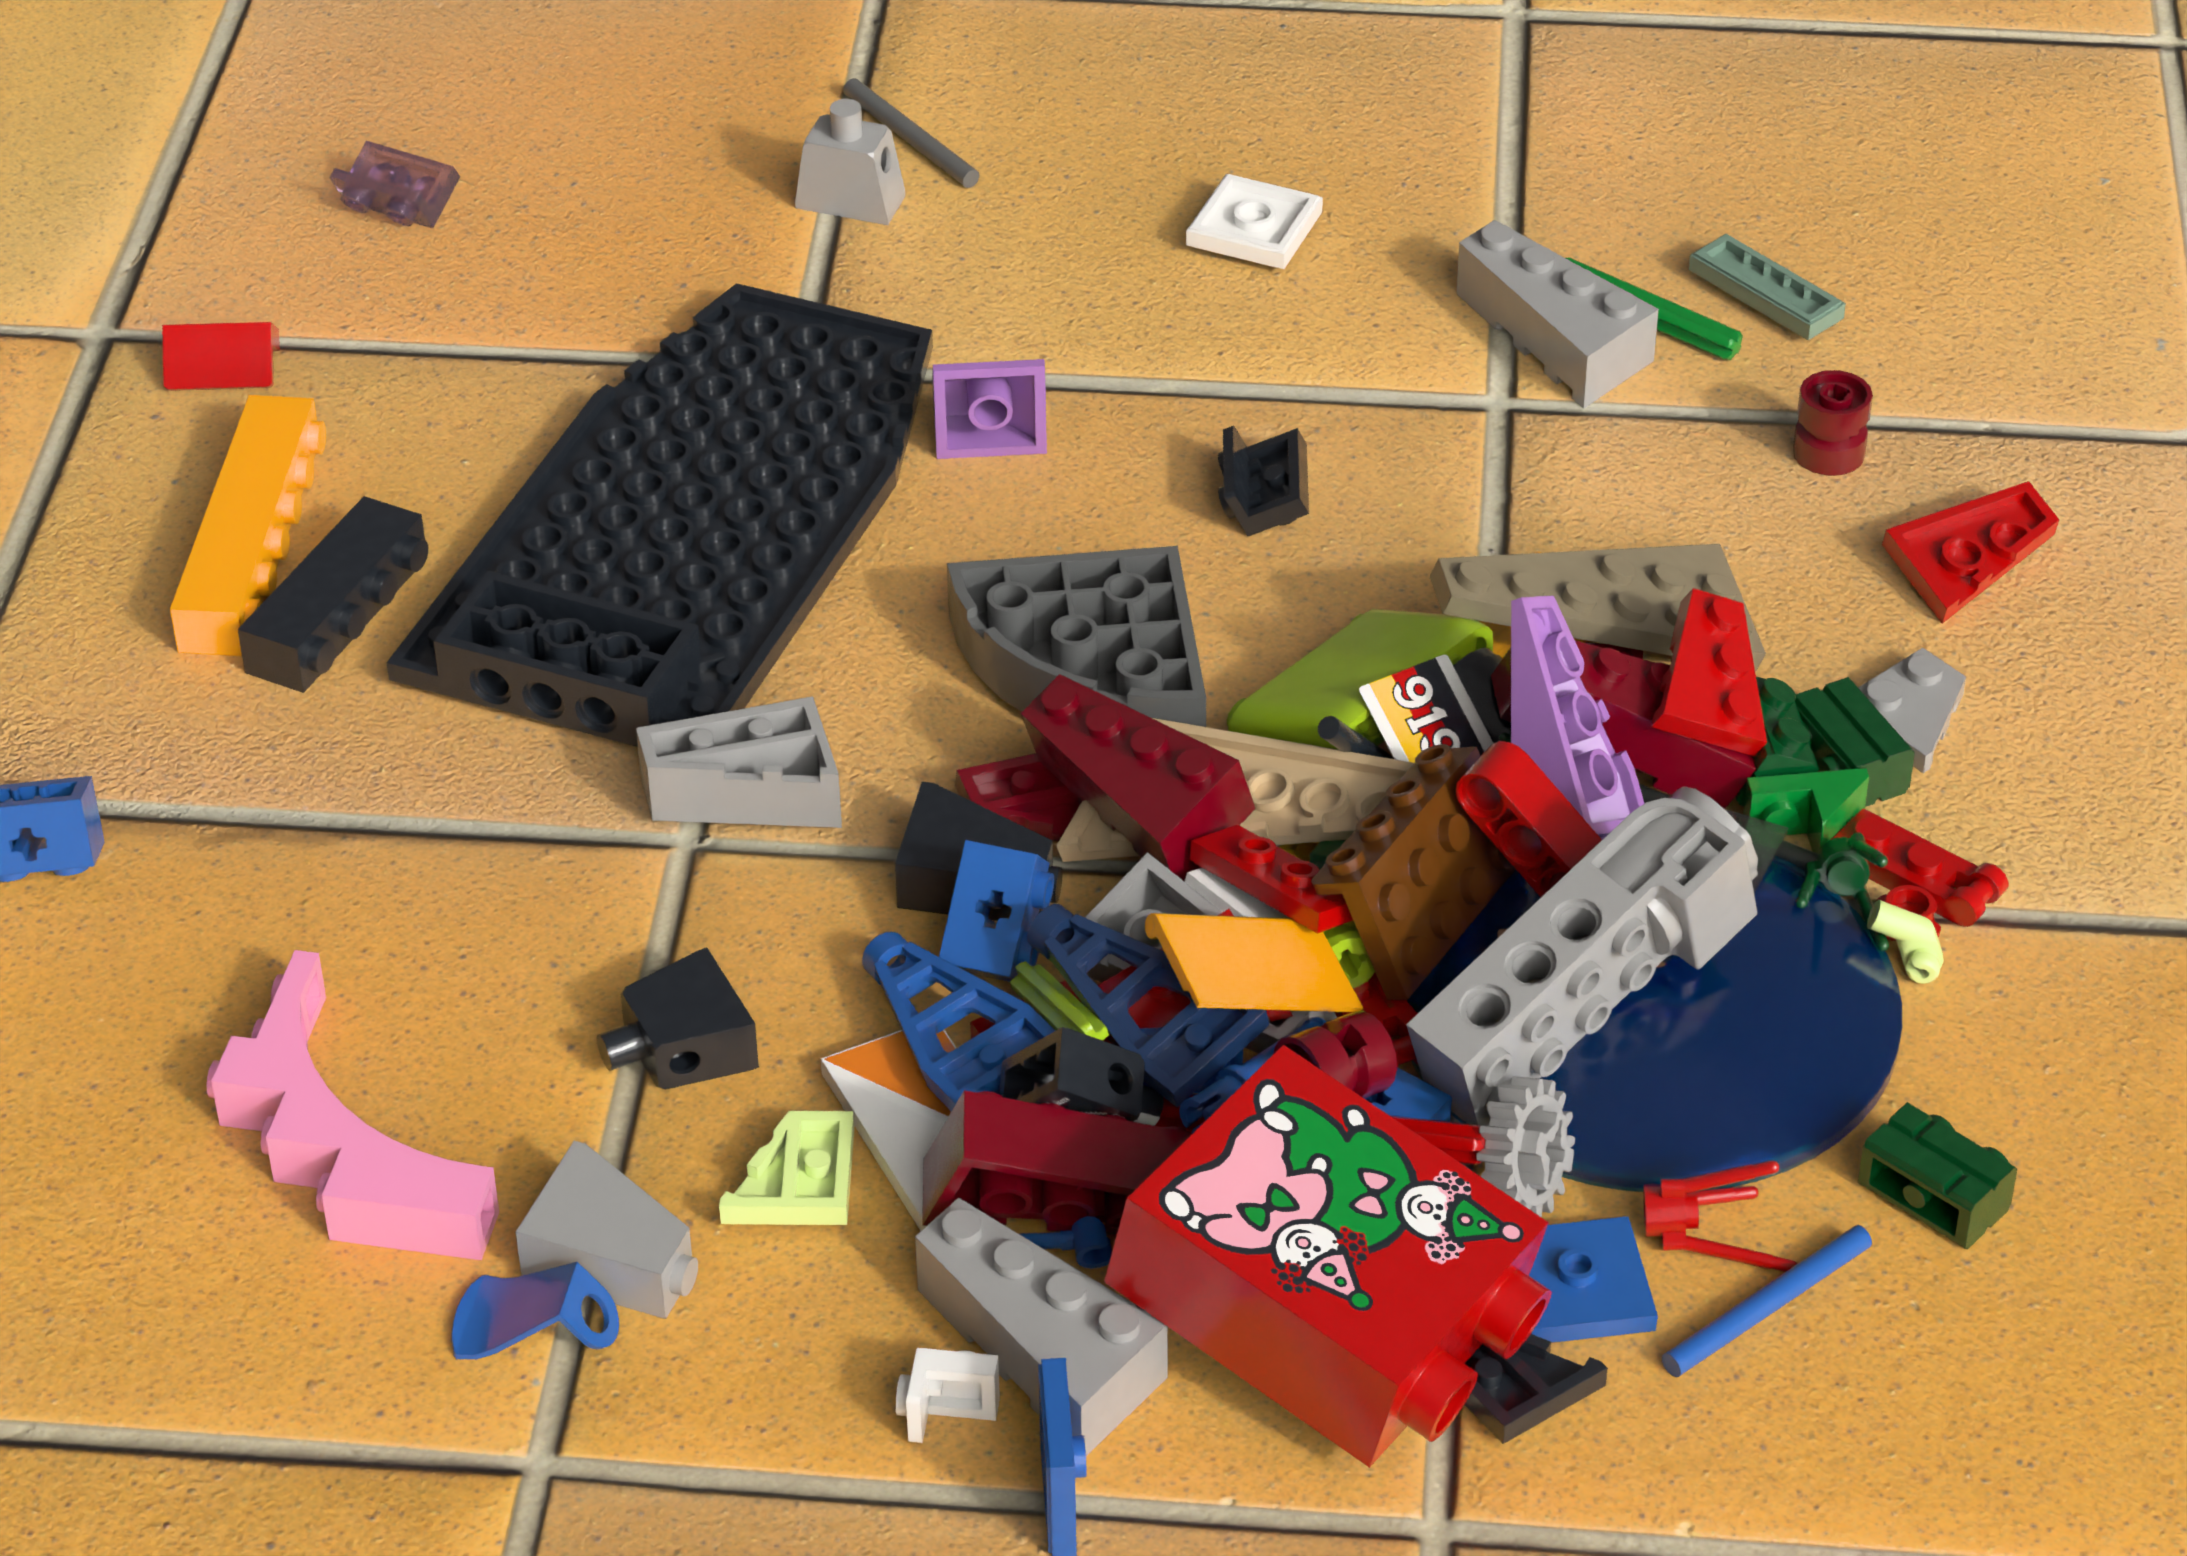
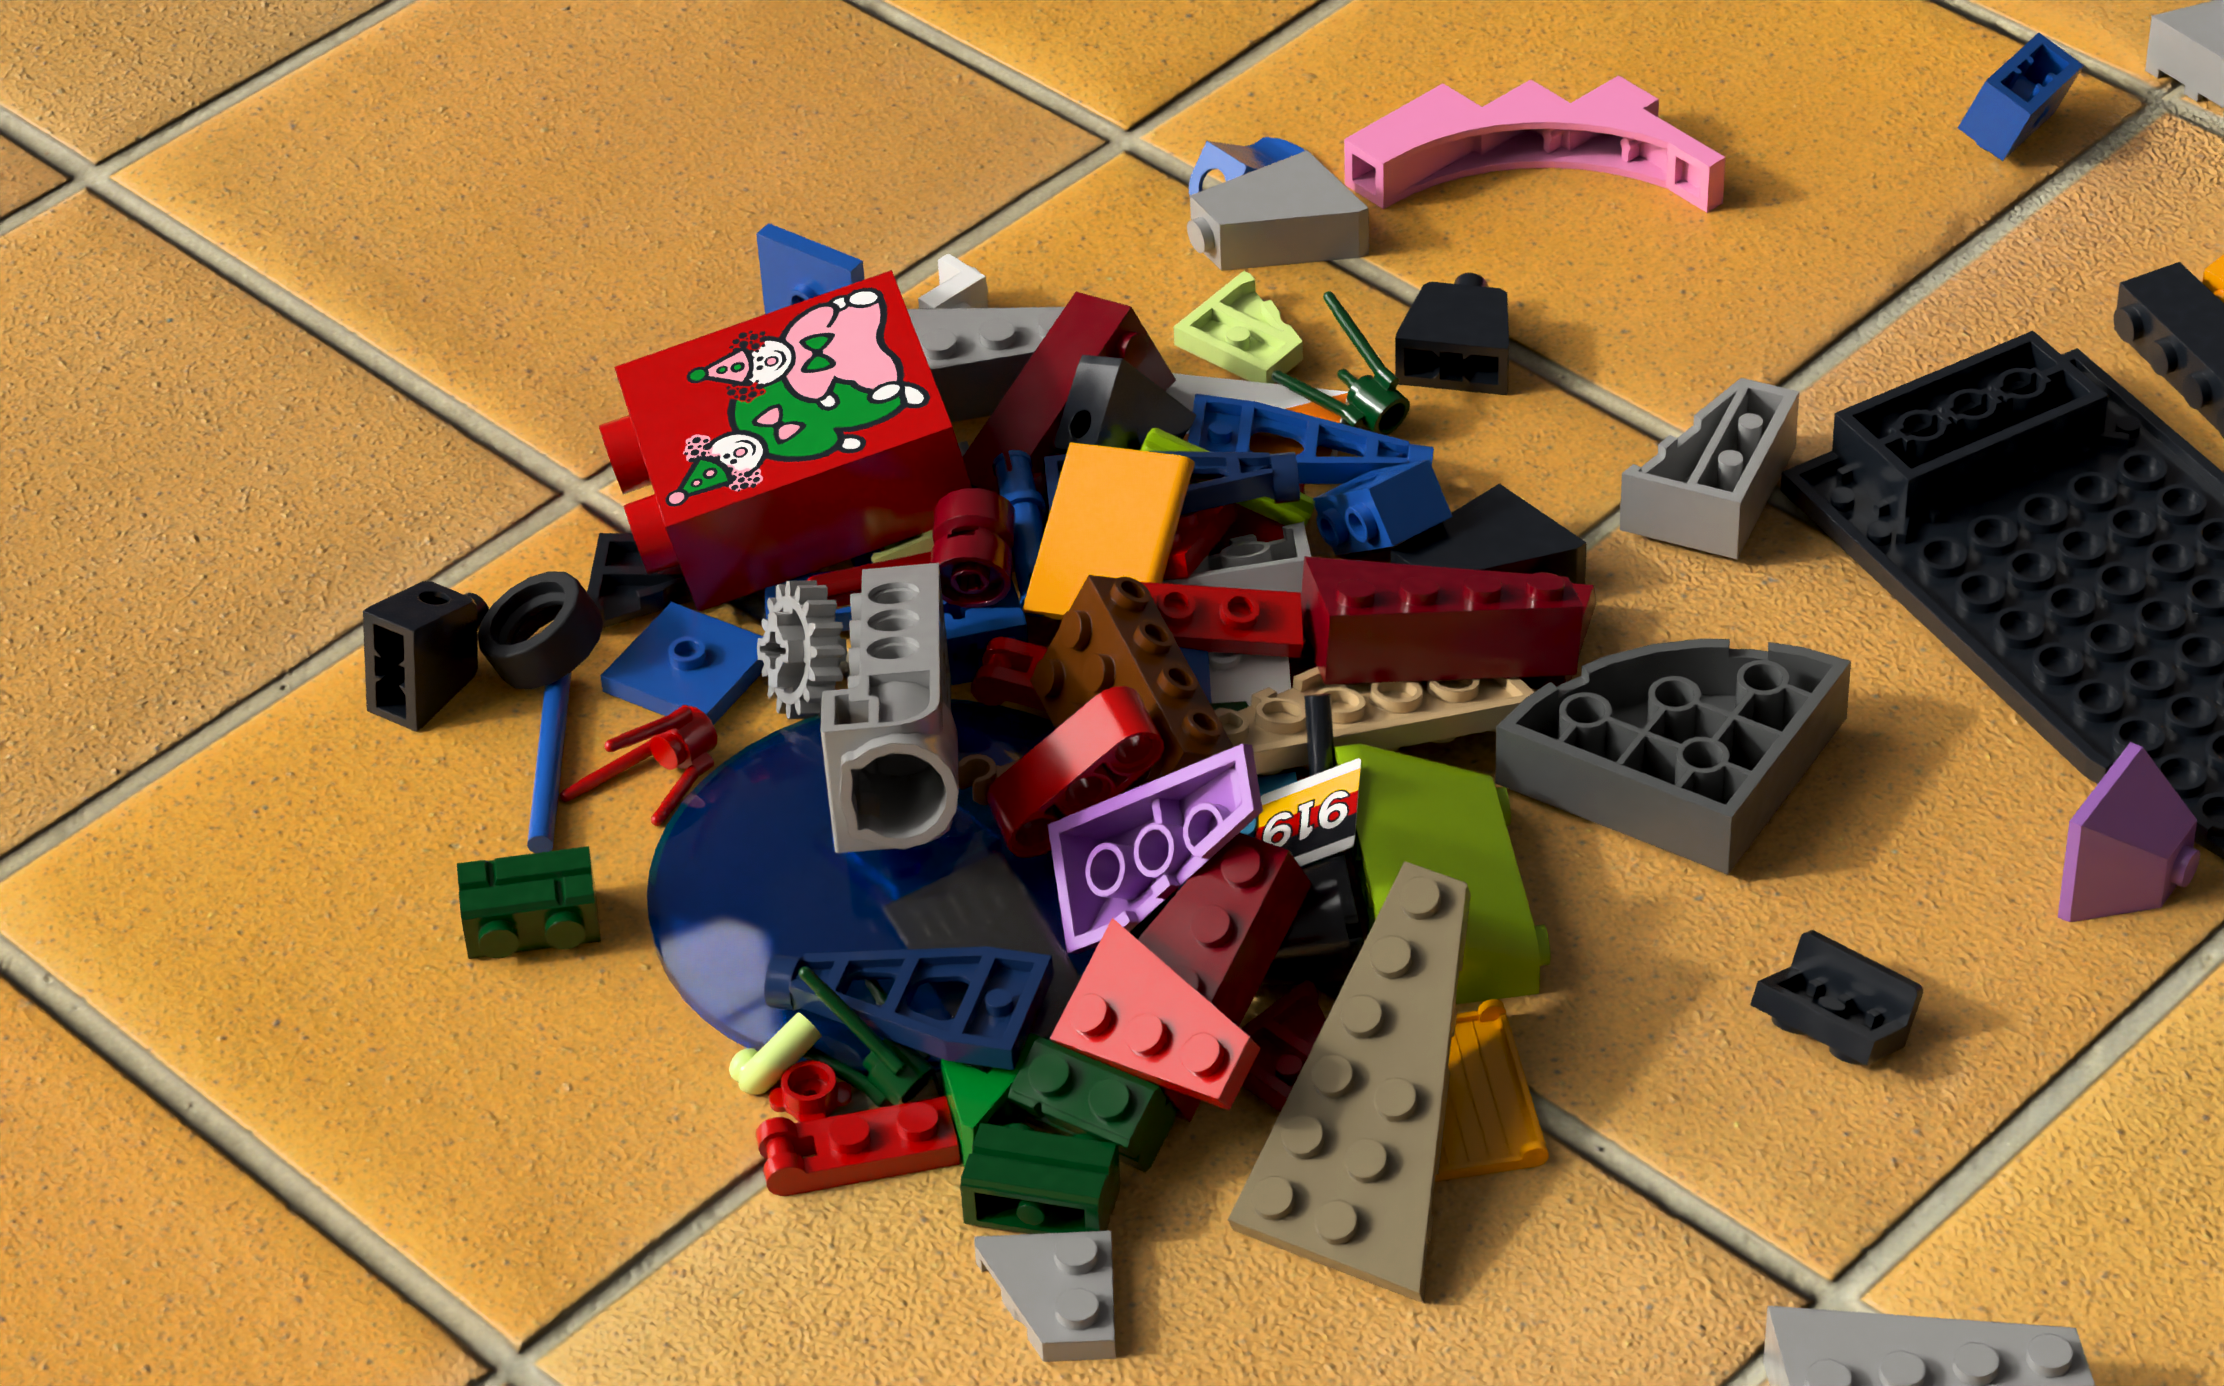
camera: 130 degrees right, 0 degrees up
(829, 1024) = (1370, 399): none -> dark green plant
(1702, 1328) = (555, 649): none -> black tyre
(1775, 1421) = (420, 651): none -> black torso
(1784, 787) = (990, 1023): none -> dark blue plate

